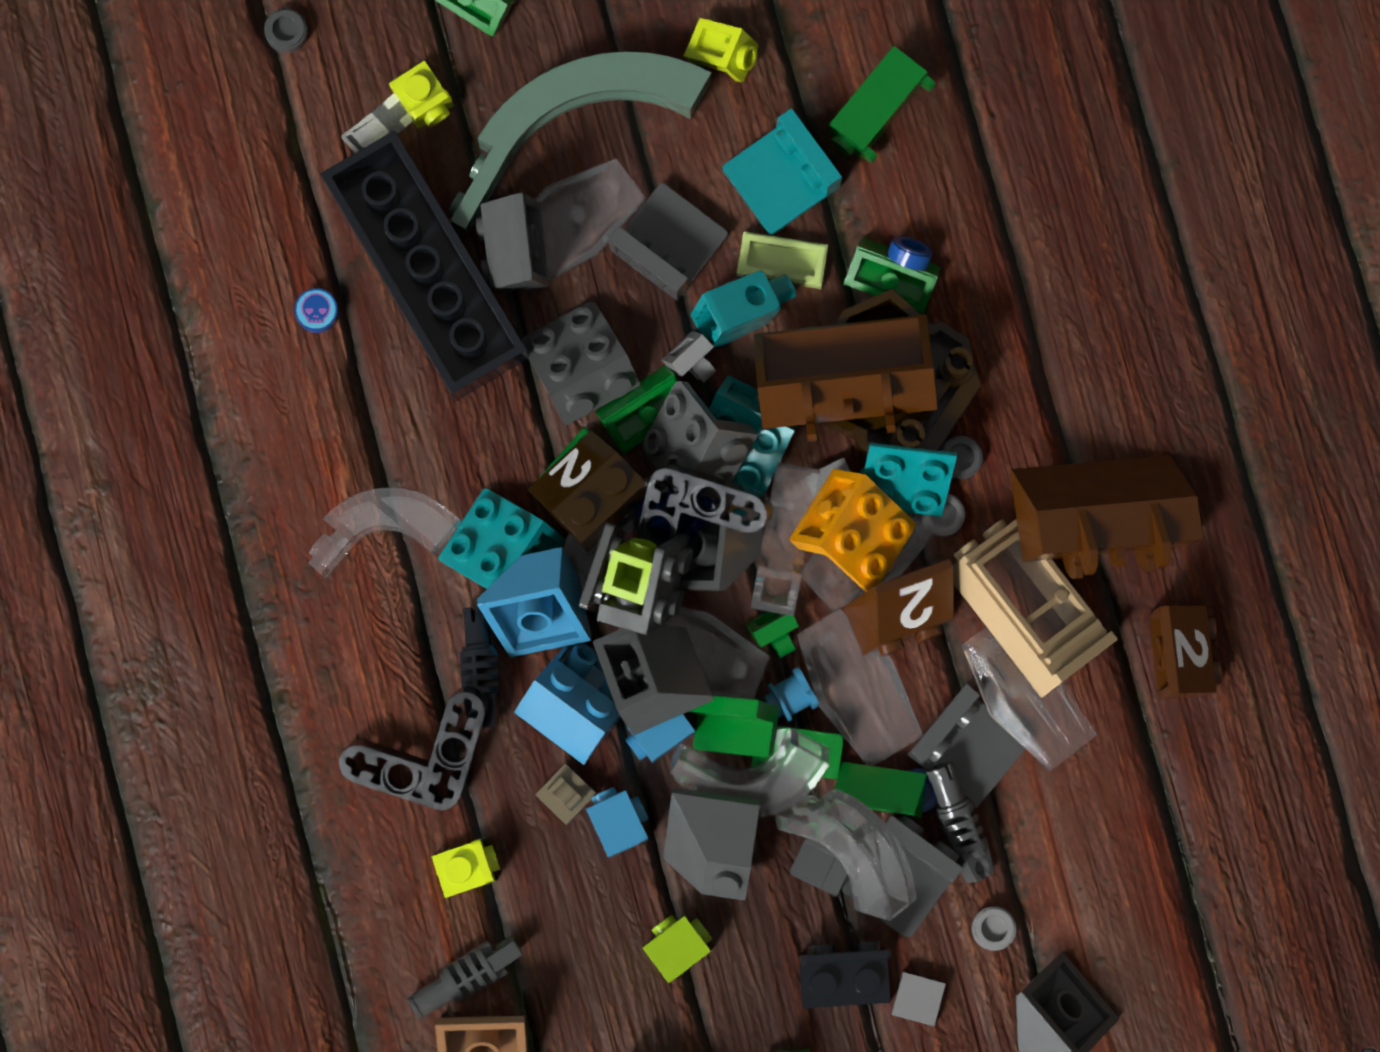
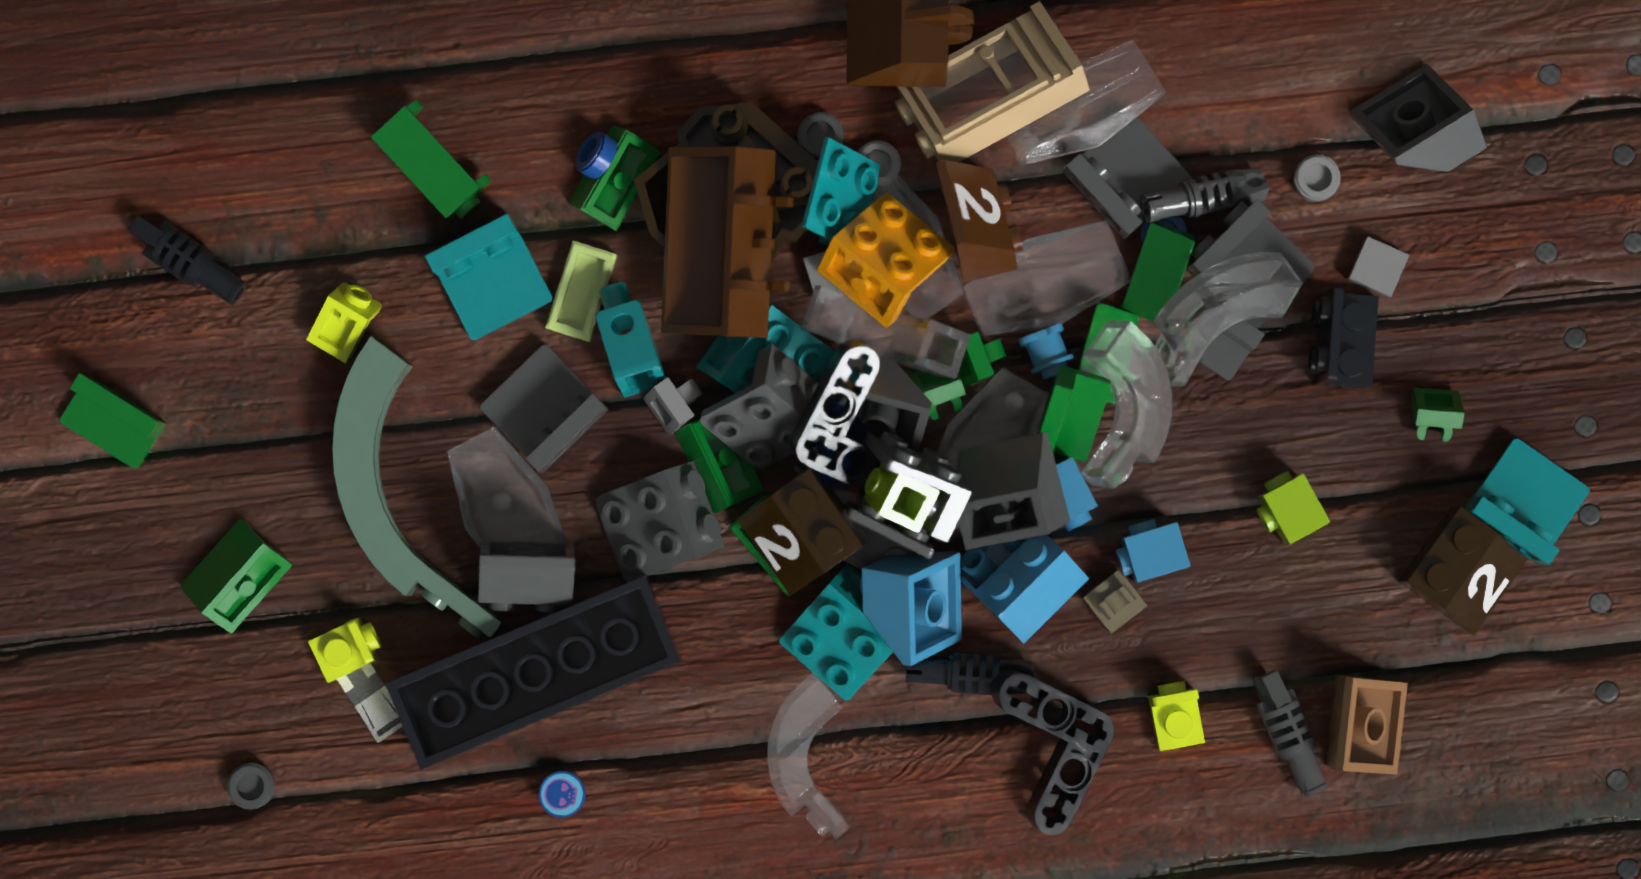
camera: 80 degrees left, 5 degrees up
(712, 840) = (1190, 455): dark grey slope -> none
(739, 600) = (939, 390): none -> green tile

